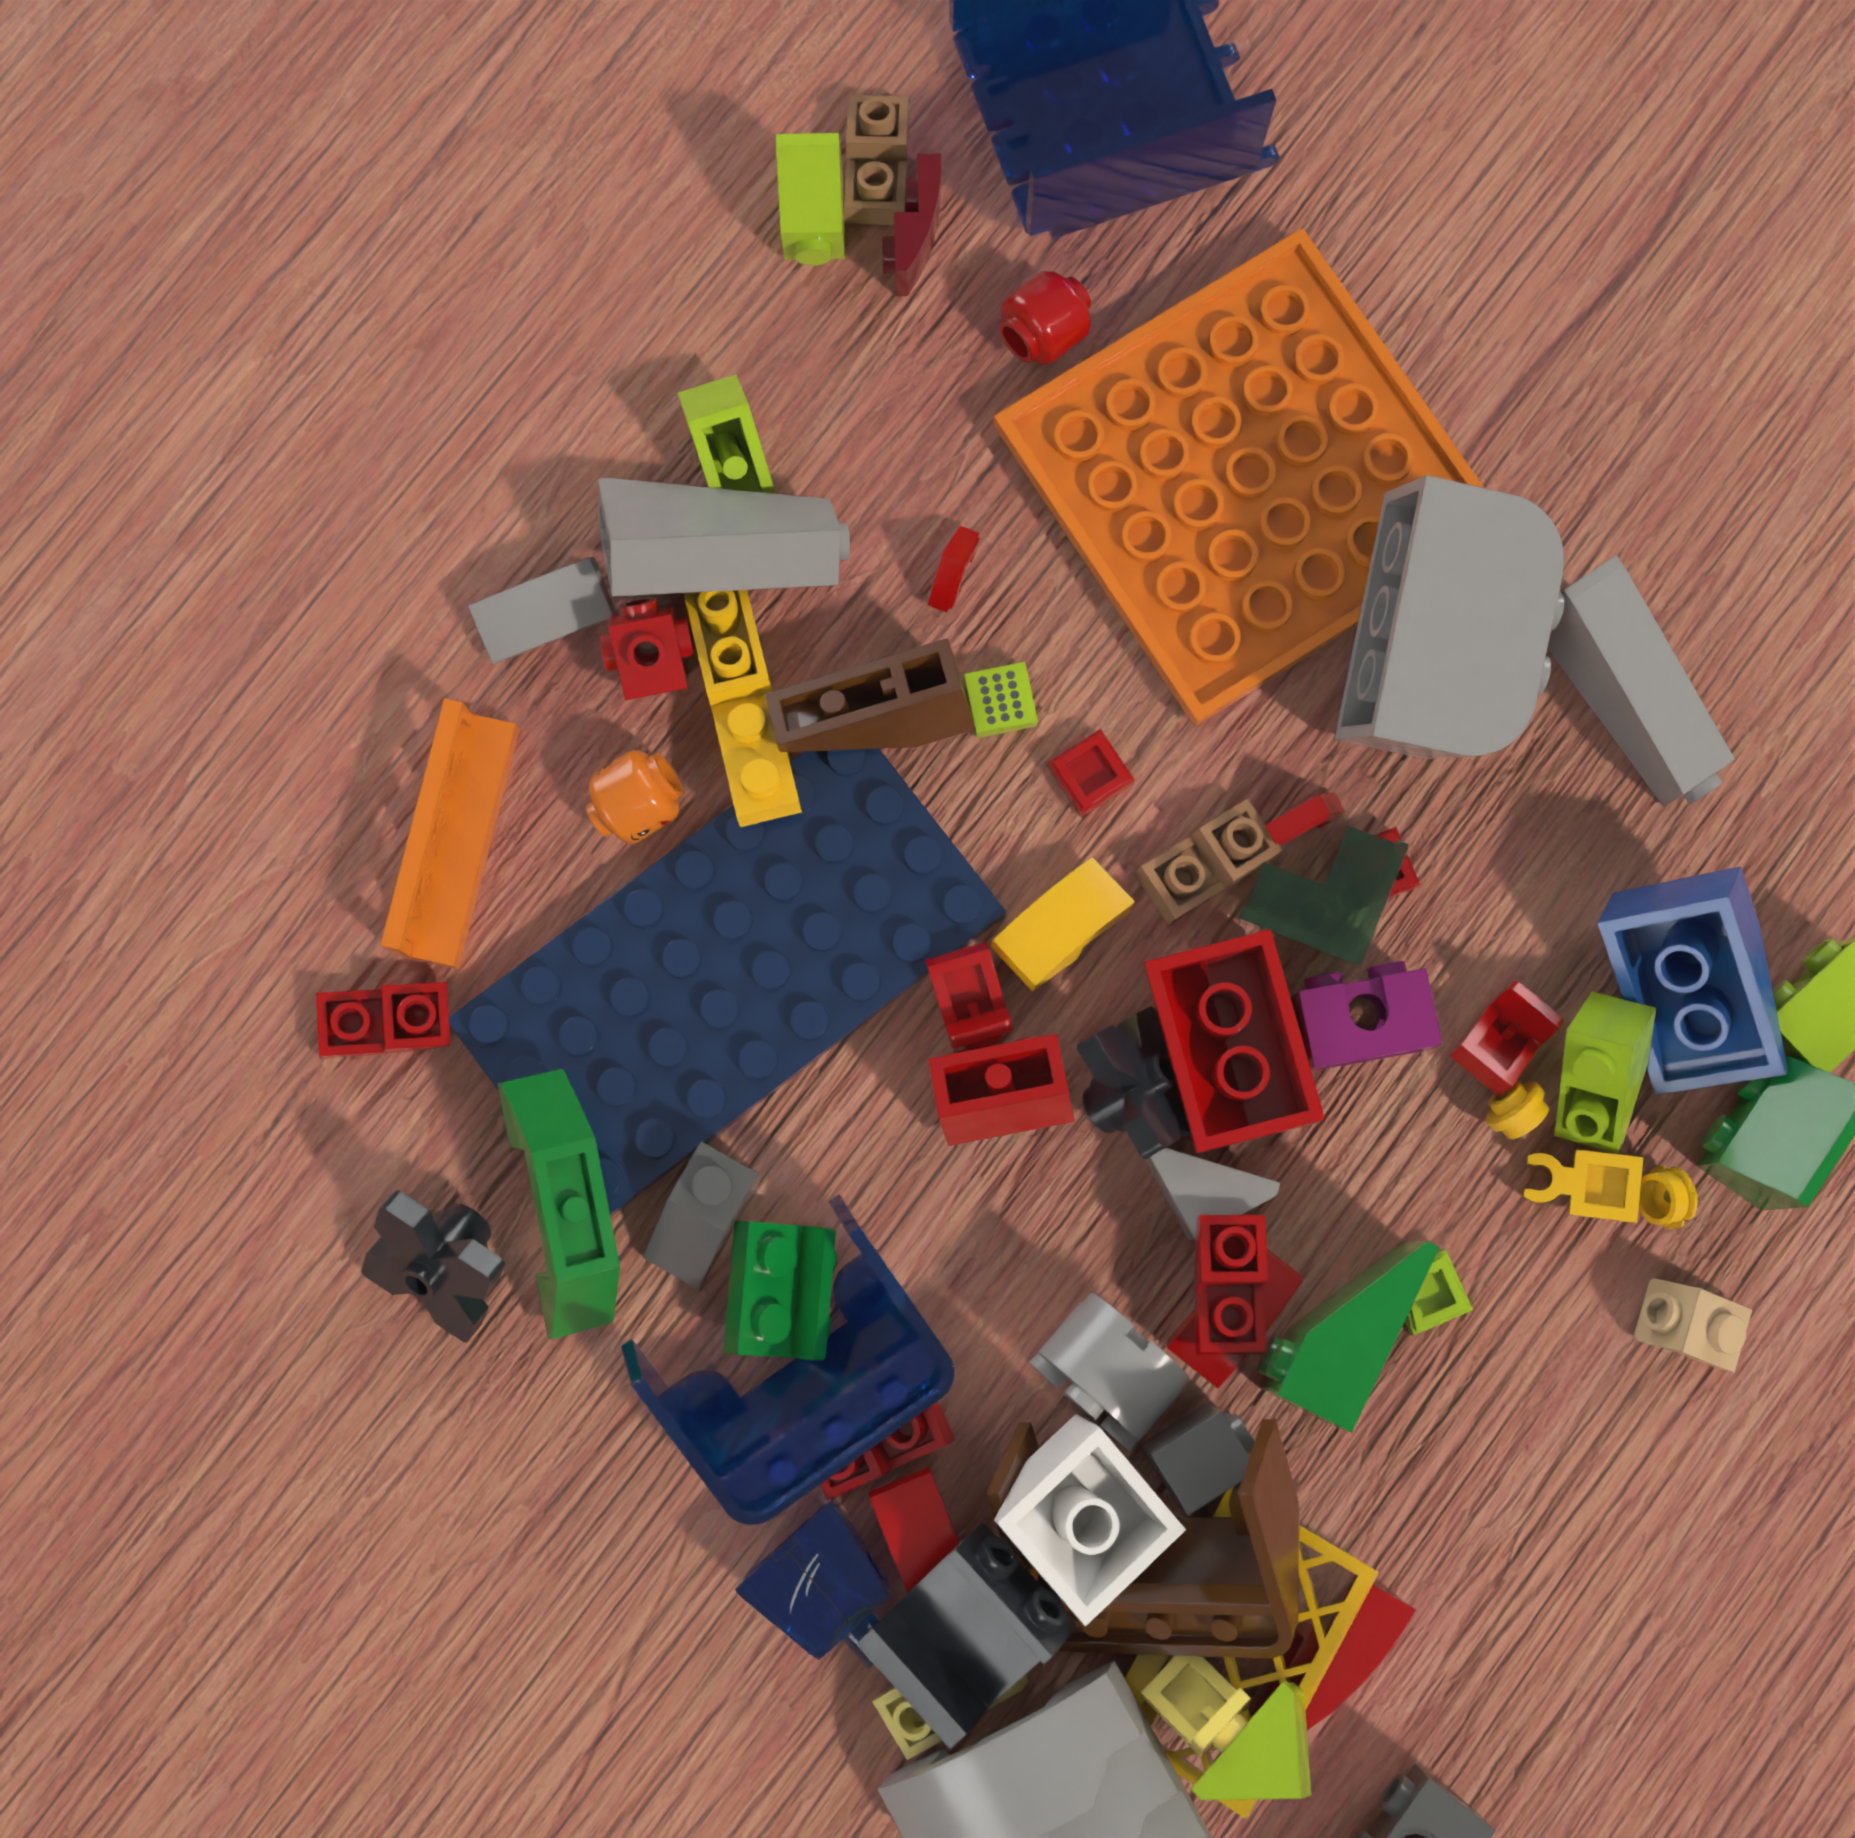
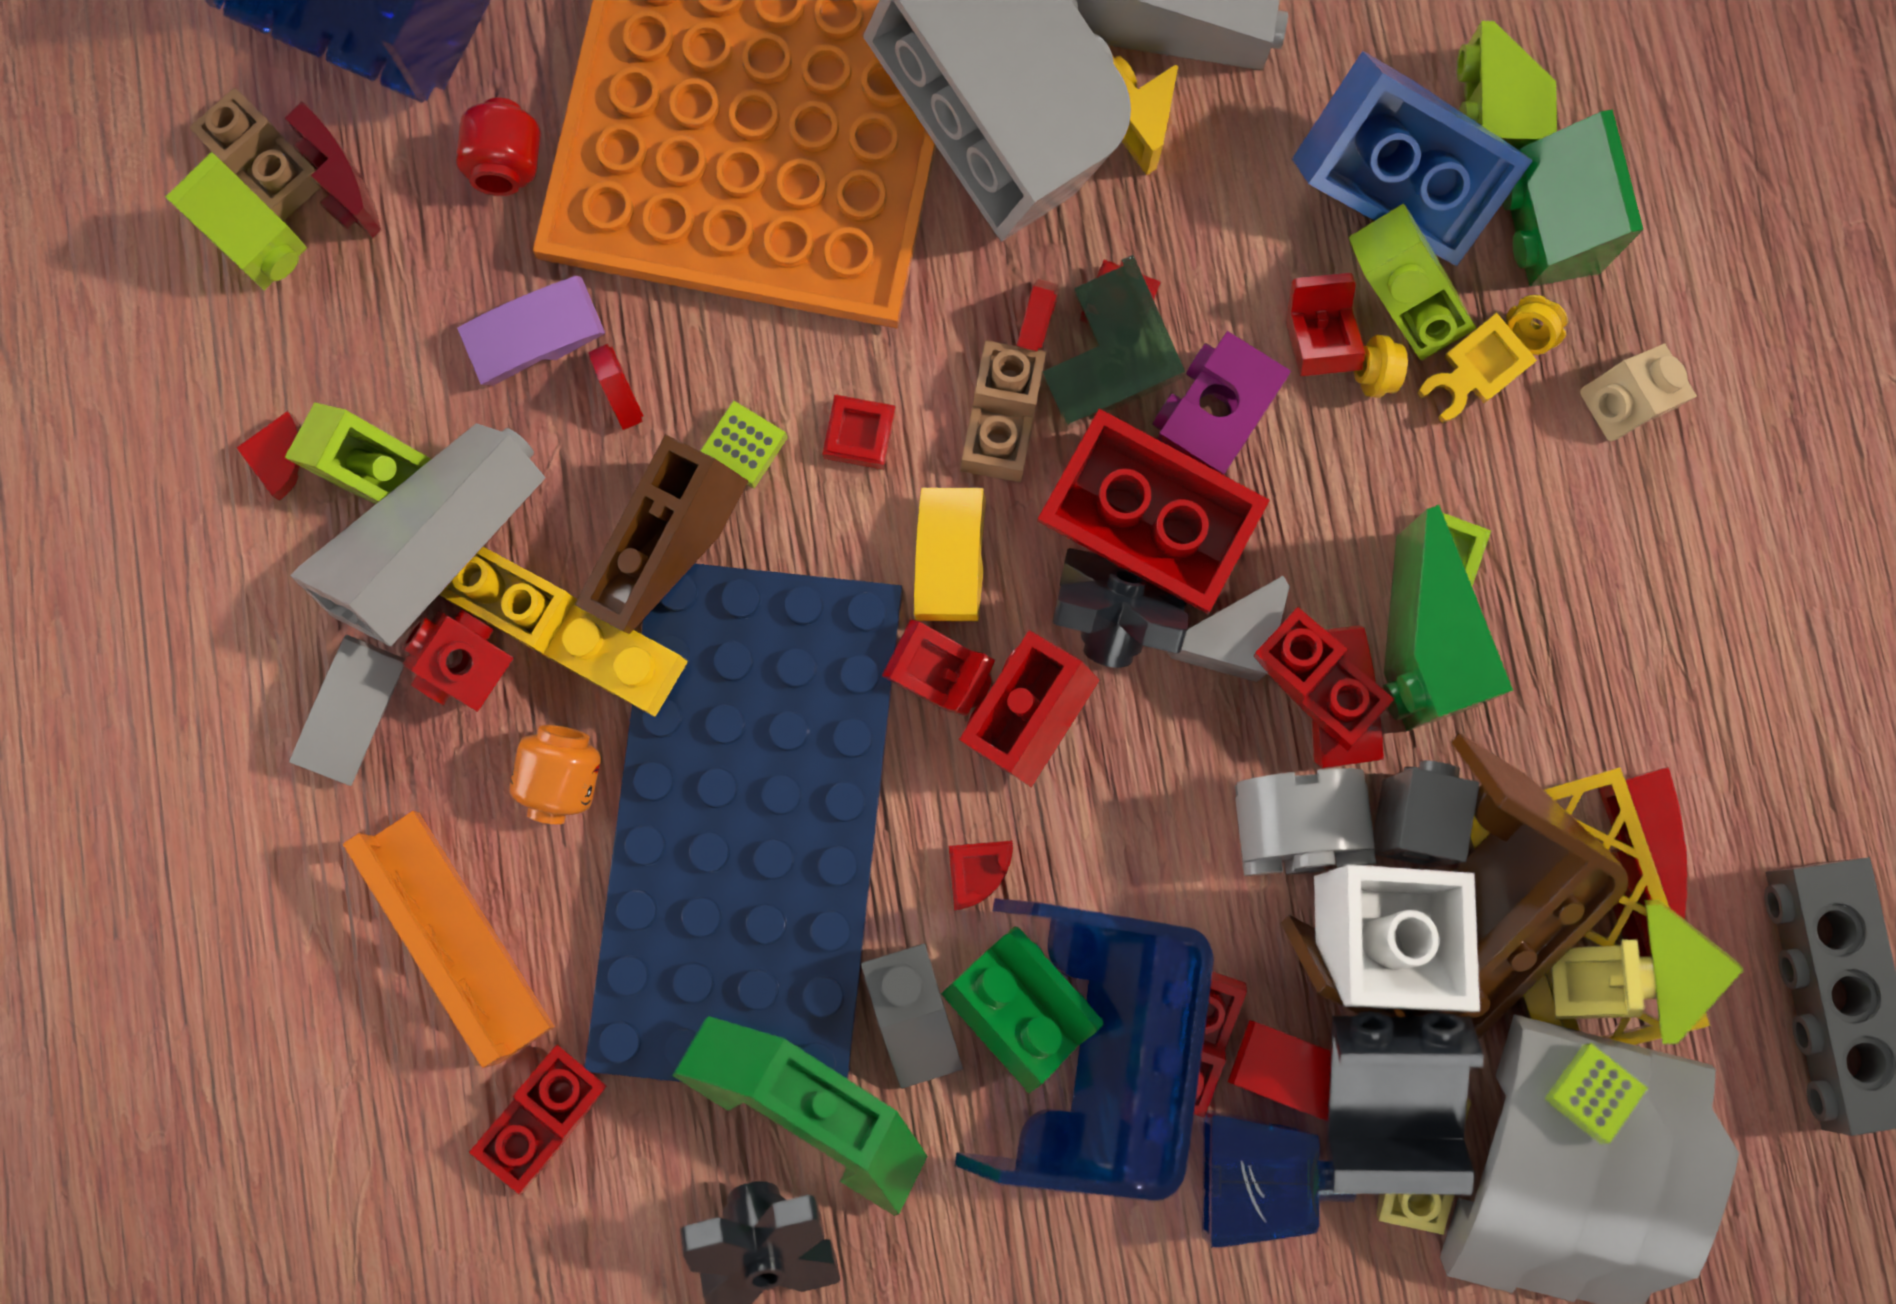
camera: 50 degrees left, 0 degrees up
(668, 377) = (267, 452): none -> red tile
(851, 1165) = (978, 871): none -> red tile
(935, 470) = (531, 329): none -> medium lavender slope
(1106, 1771) = (1596, 1093): none -> lime tile
(1537, 748) = (1148, 114): none -> yellow slope

